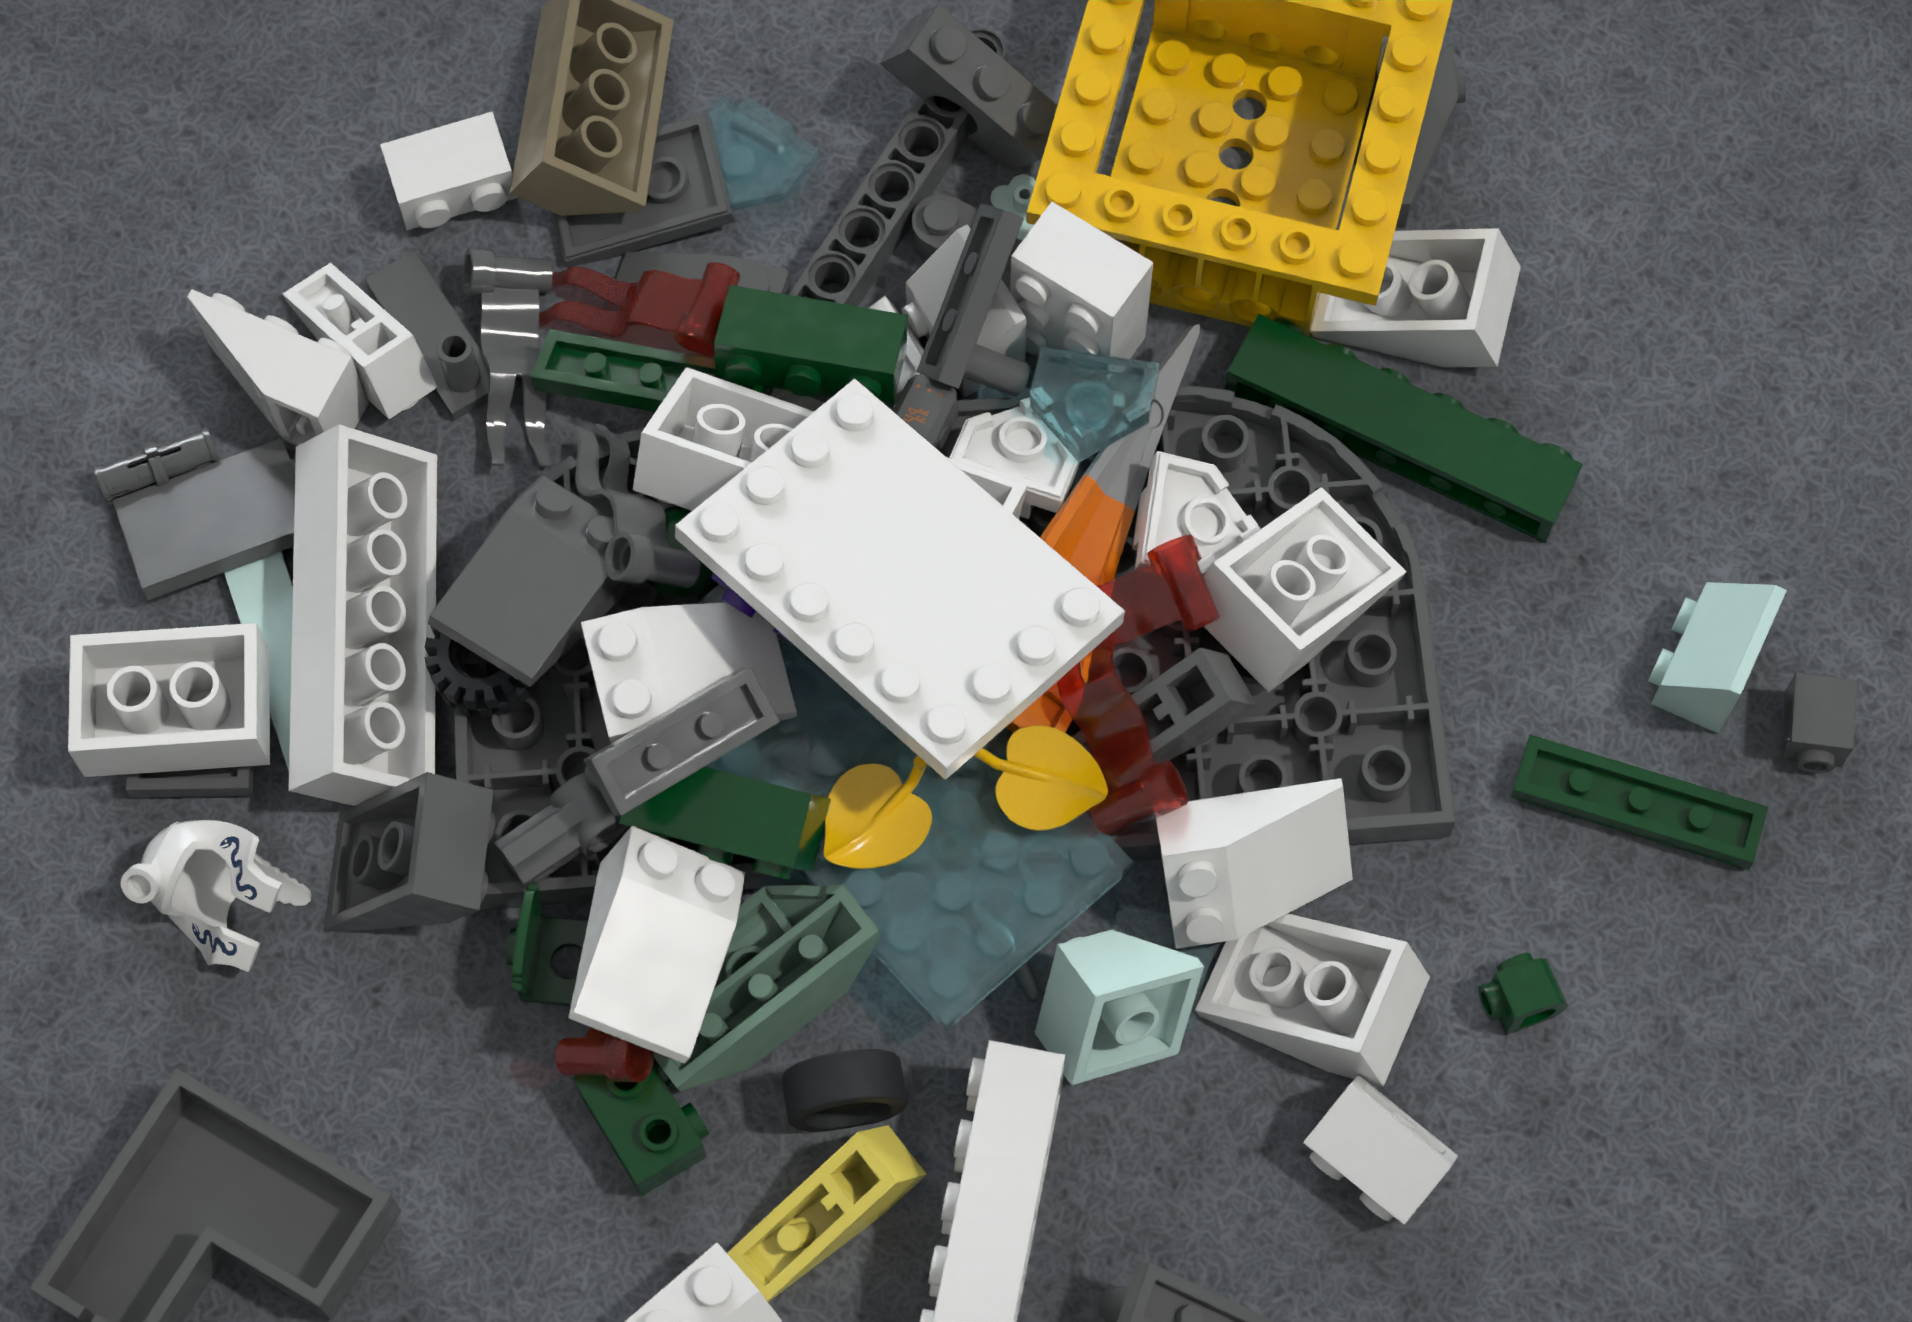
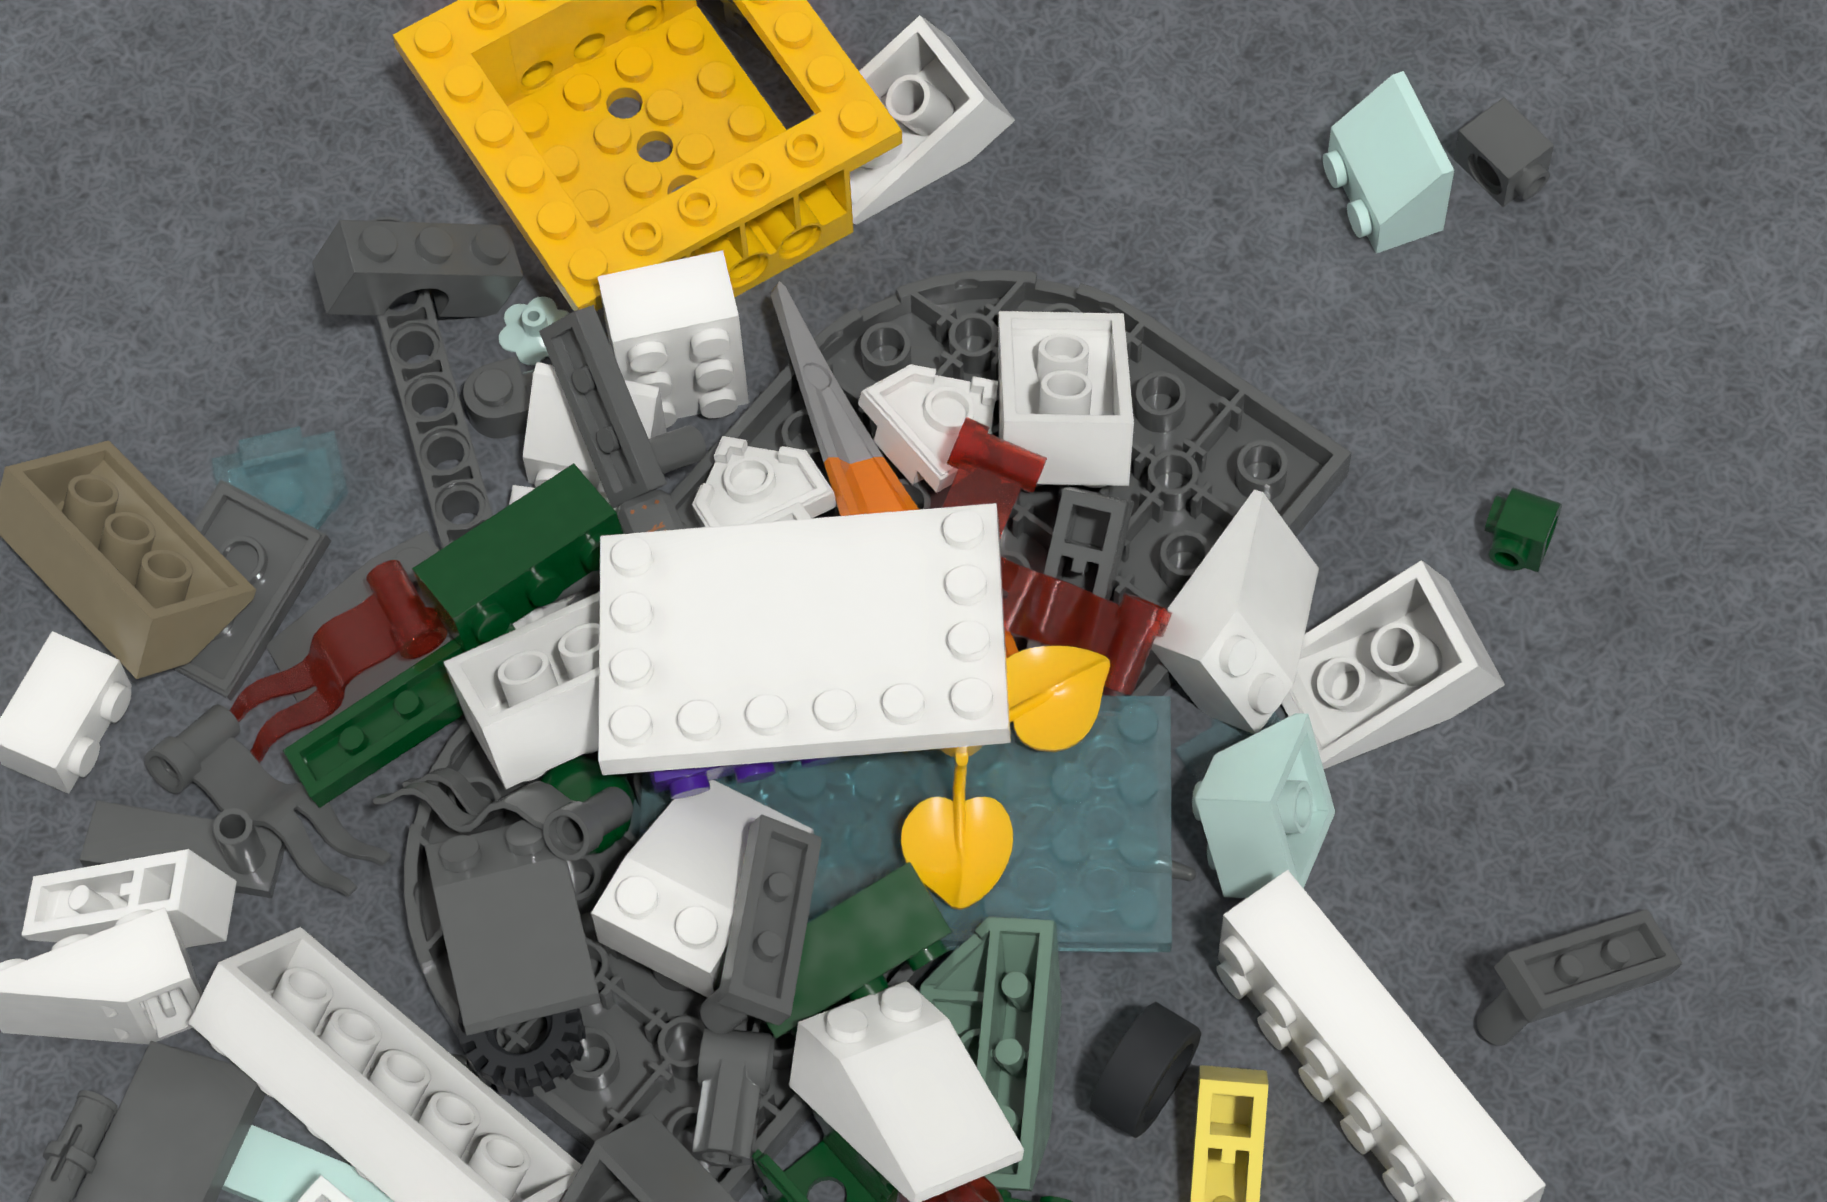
camera: 45 degrees left, 5 degrees down
(1092, 397) = (767, 401): clear light blue plate -> none
(1379, 1151) = (1556, 728): white brick -> none
(1405, 427) = (1000, 220): dark green brick -> none
(1639, 802) = (1447, 324): dark green plate -> none

